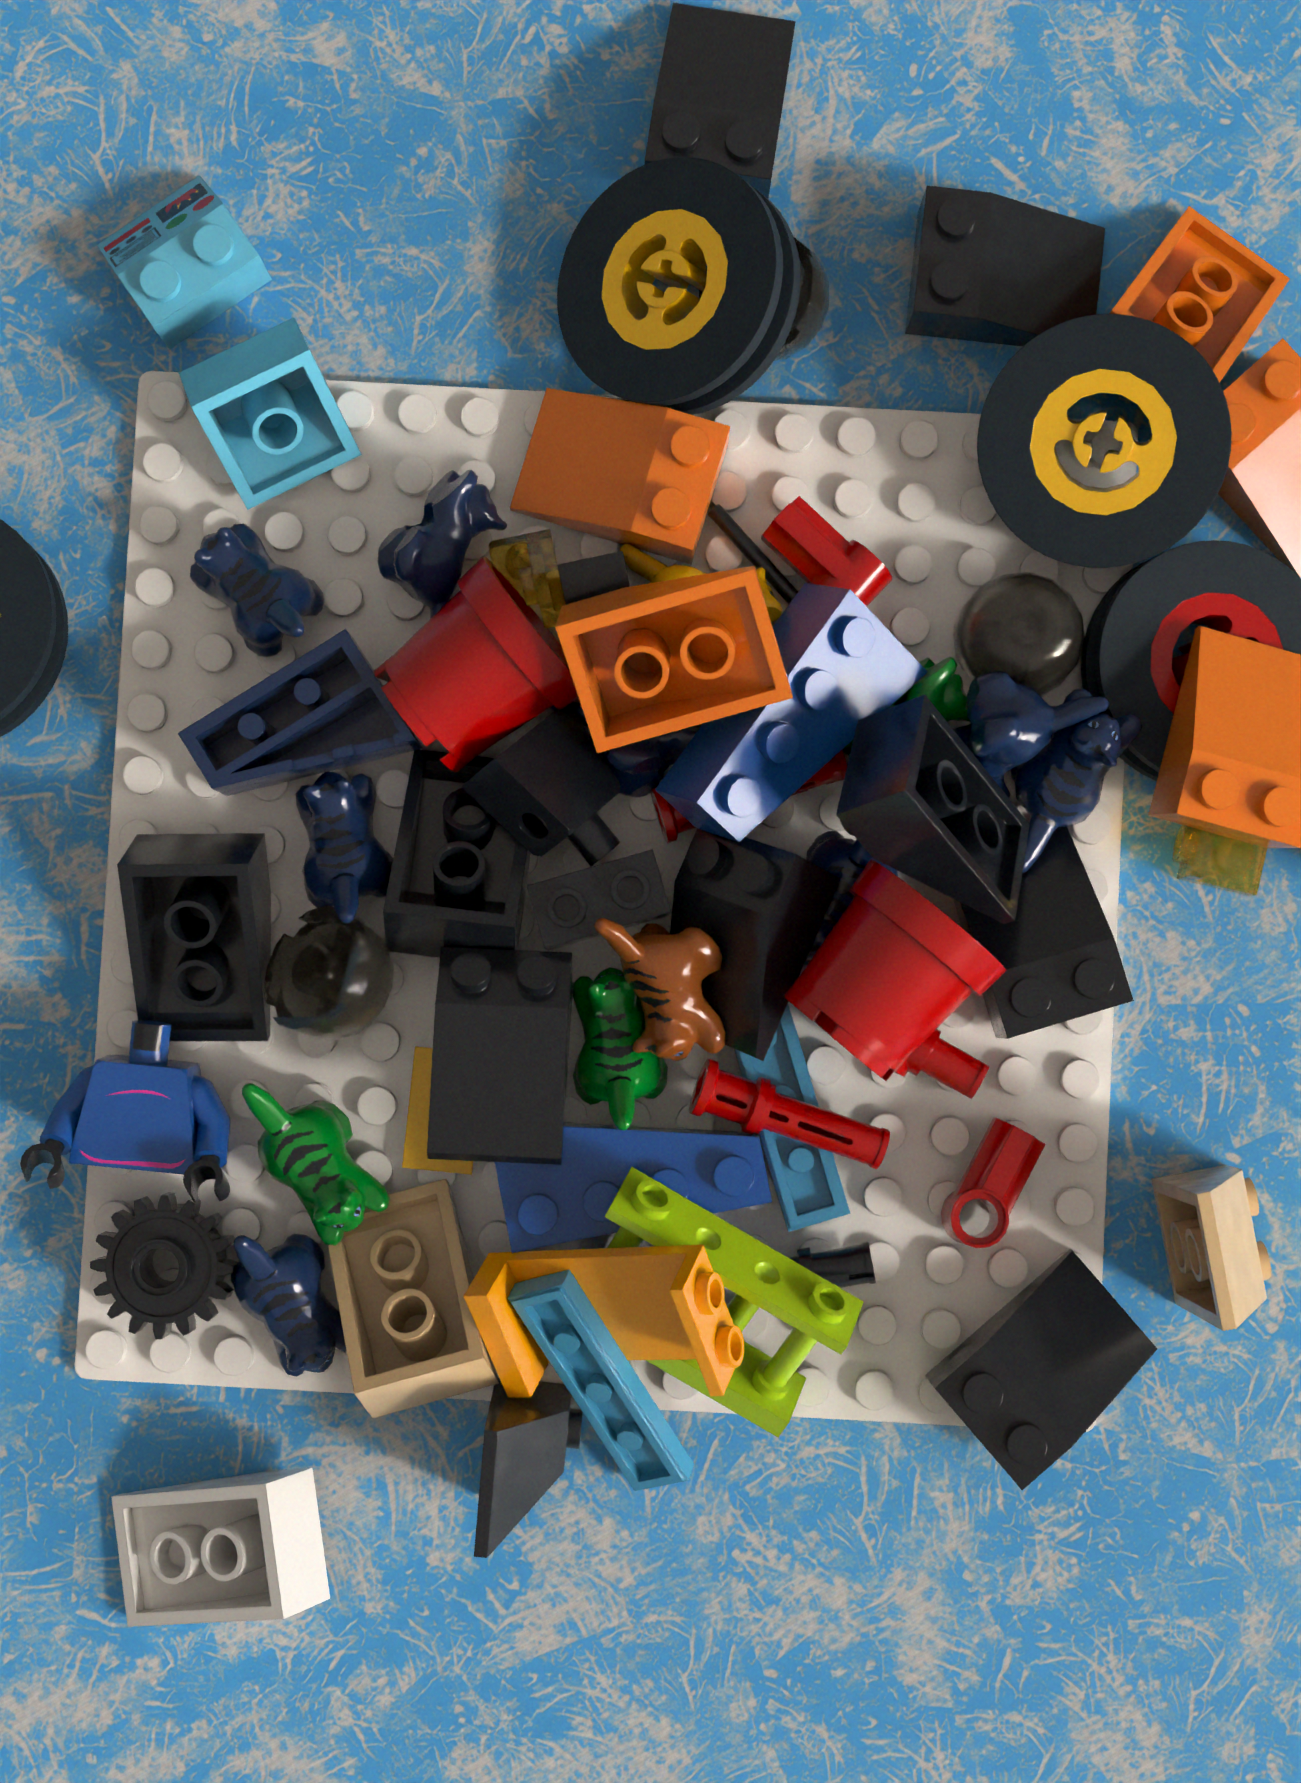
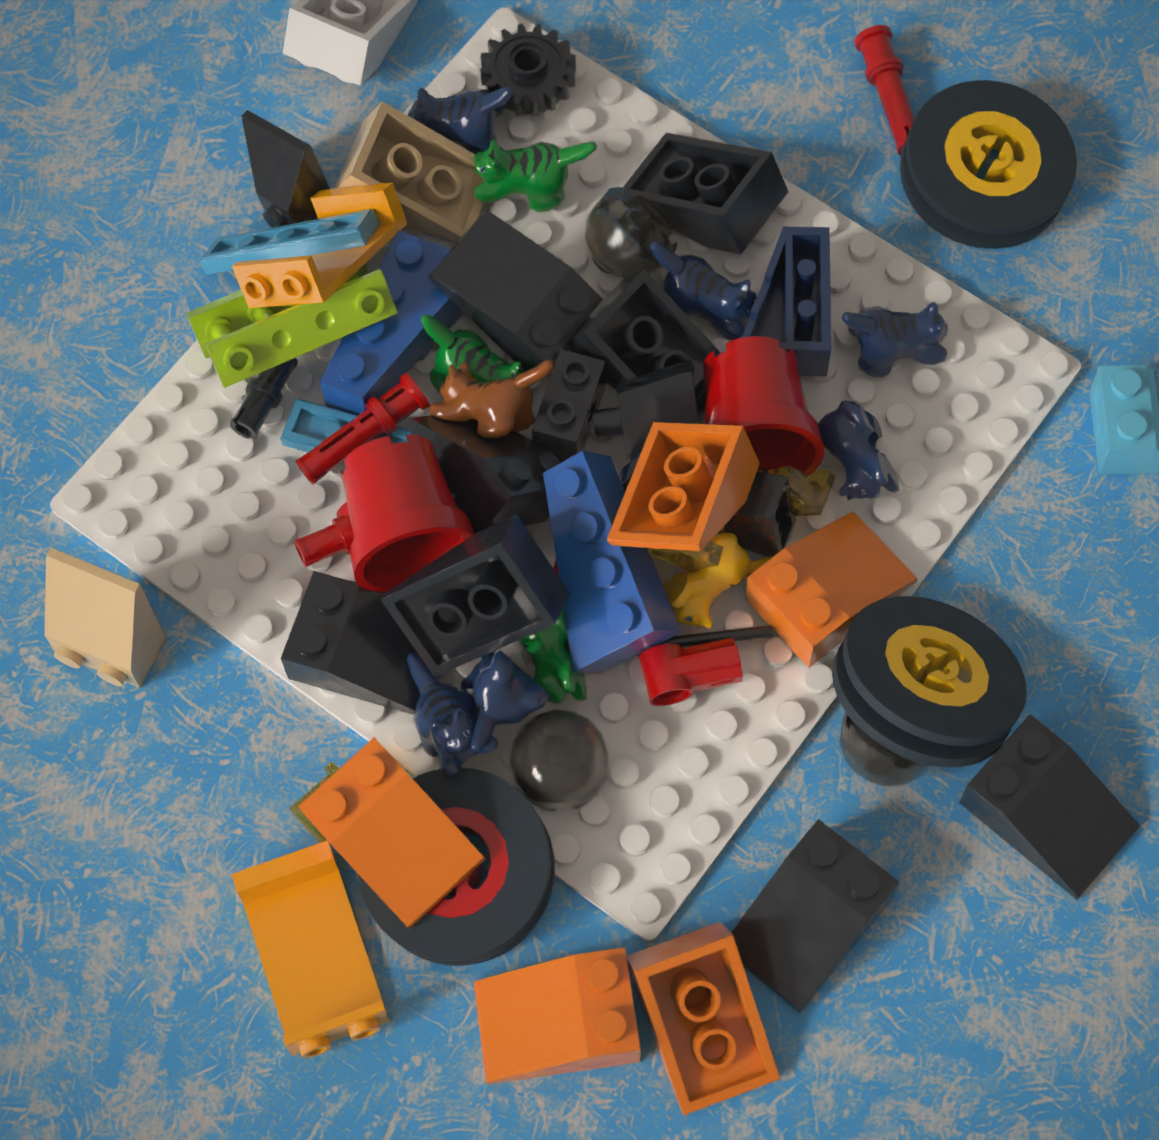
camera: 125 degrees right, 20 degrees down
(139, 1117) = (621, 100): blue torso -> none
(269, 413) = (1004, 404): medium azure slope -> none
(996, 1178) = (235, 523): red piece -> none
(1043, 1368) = (107, 483): black slope -> none
(1177, 466) = (616, 909): black wheel -> none

